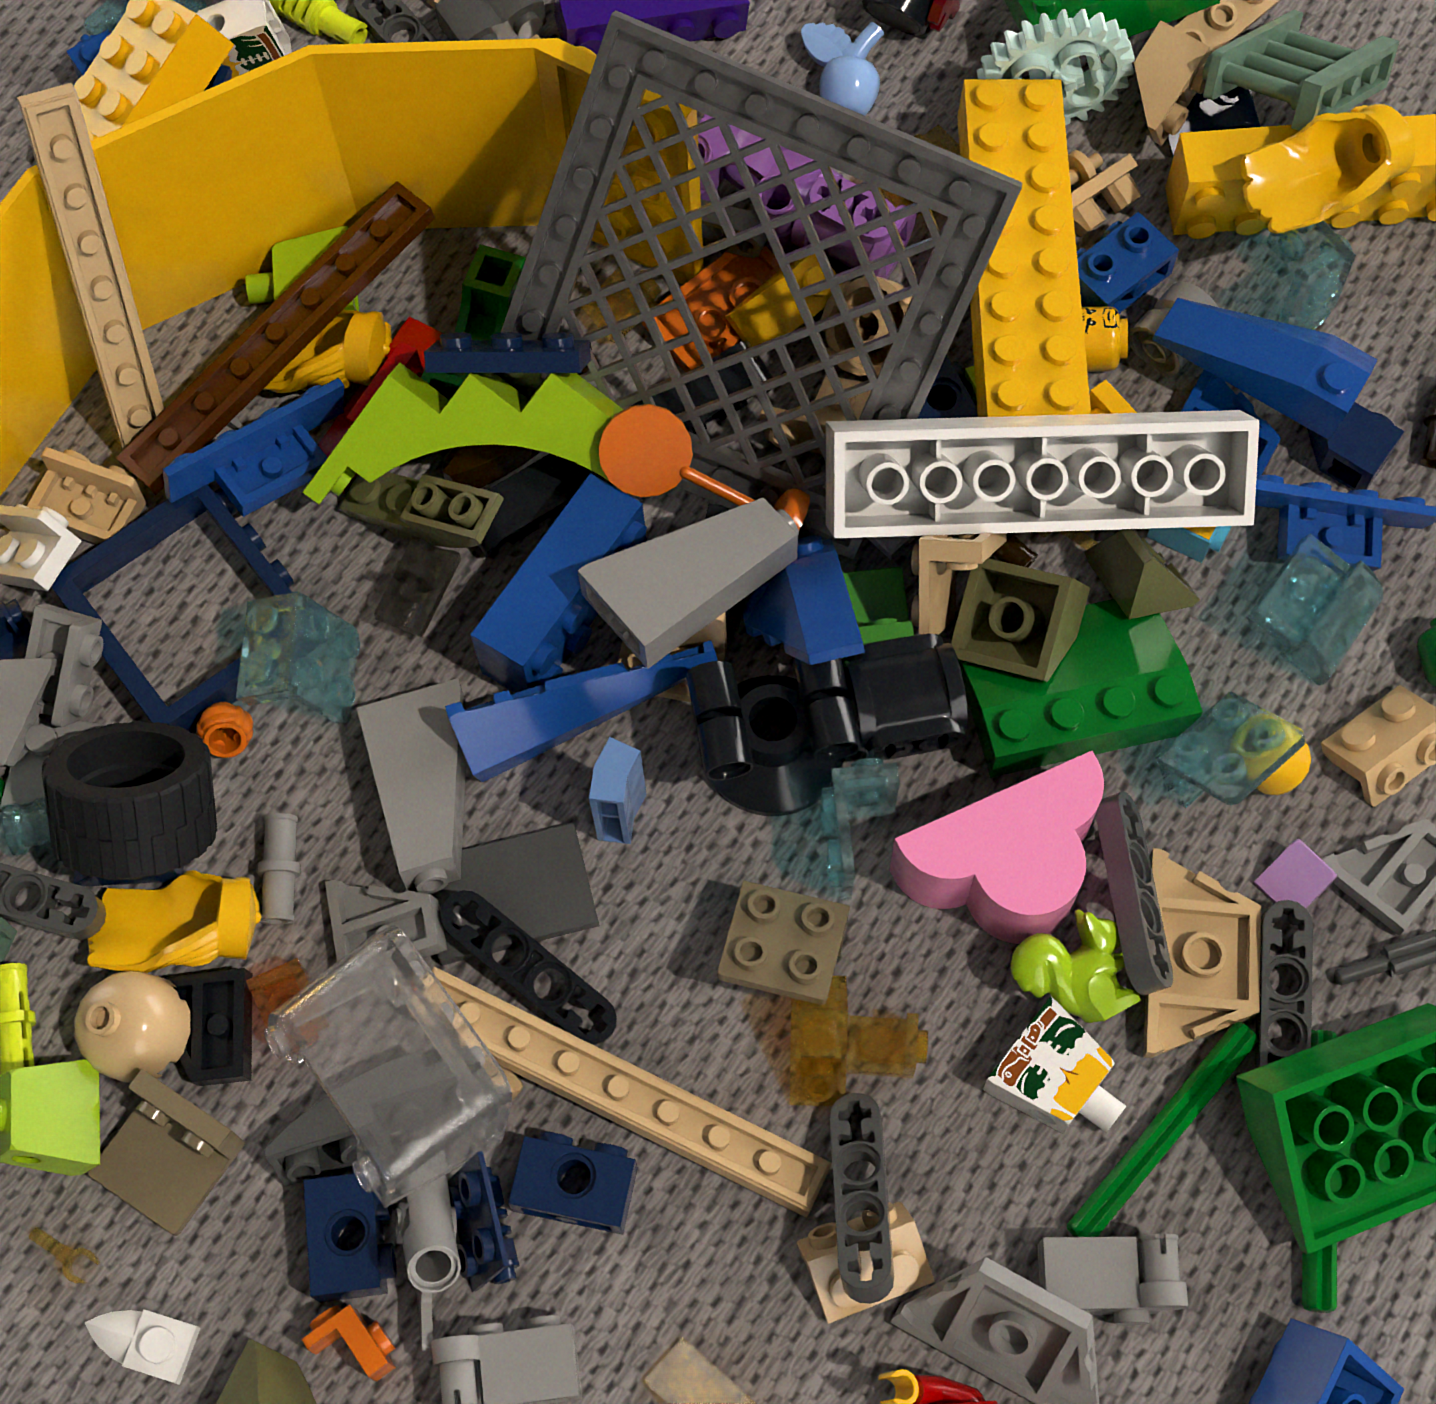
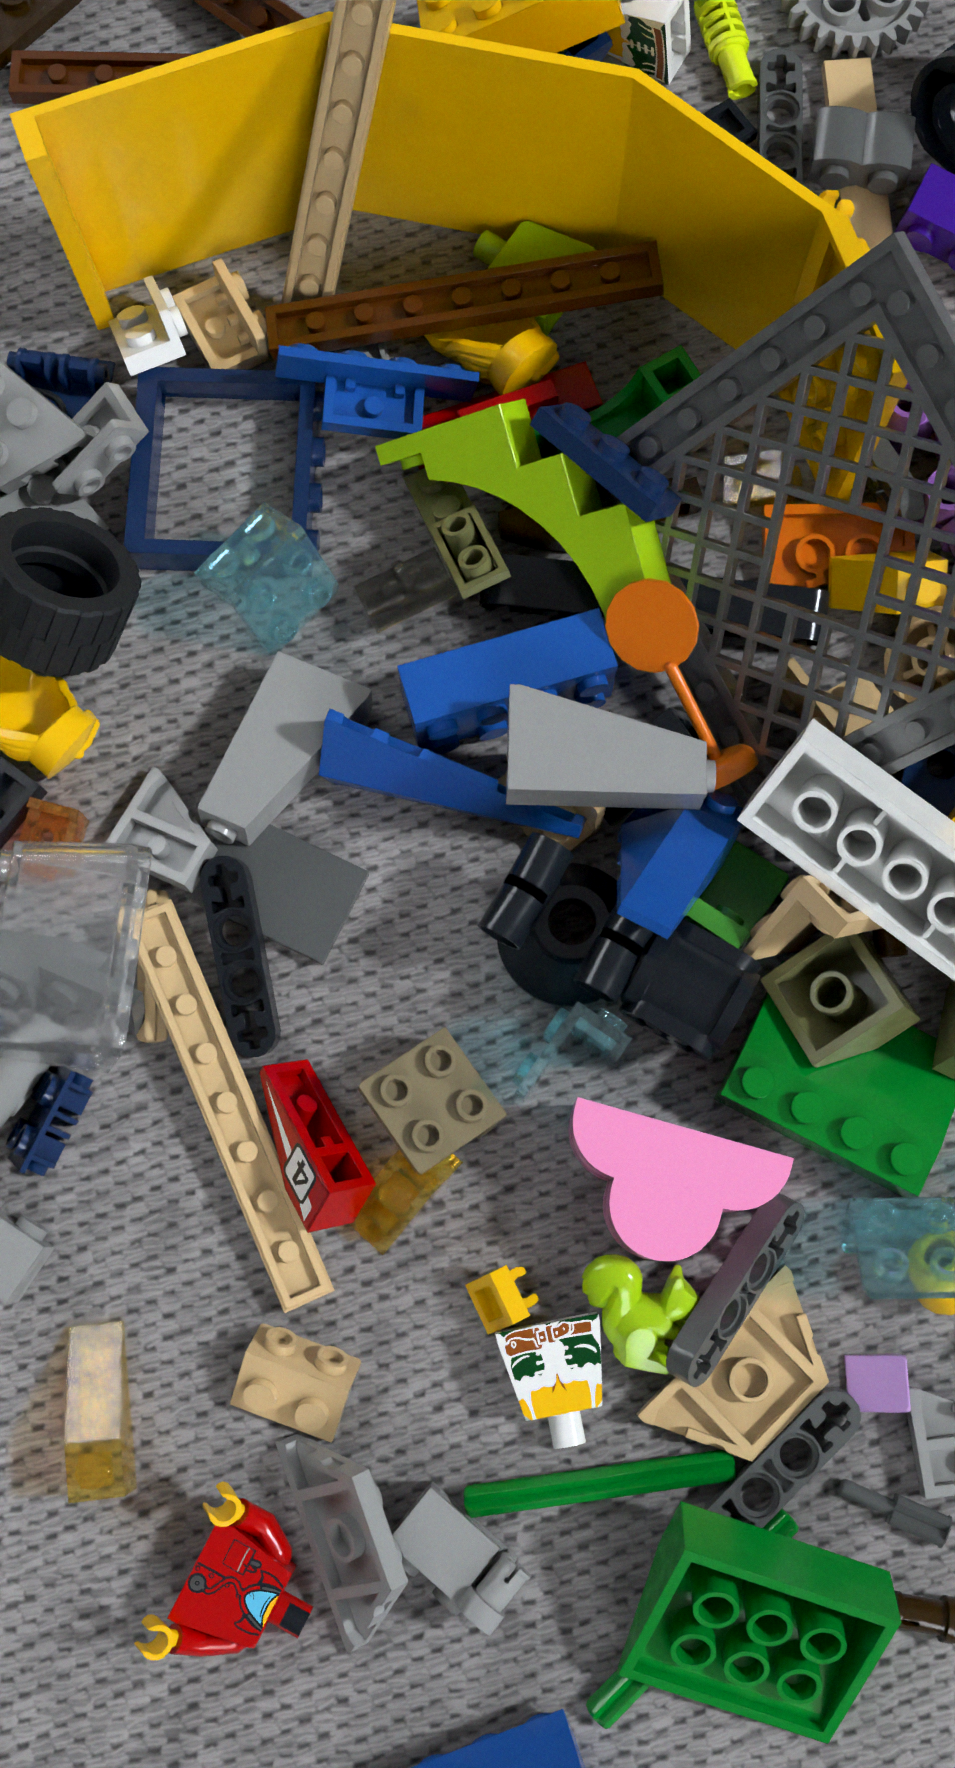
camera: 40 degrees right, 10 degrees up
(225, 729) = (176, 588): orange piece -> none
(279, 869) = (129, 728): light grey pin -> none
(600, 1206) = (109, 1130): dark blue brick -> none
(616, 791) = (407, 878): medium blue piece -> none
(725, 1065) = (314, 1148): none -> red slope
(861, 1195) = (320, 1333): dark grey beam -> none
(886, 1046) = (449, 1238): clear yellow bracket -> none
(965, 1057) = (499, 1298): none -> yellow tile

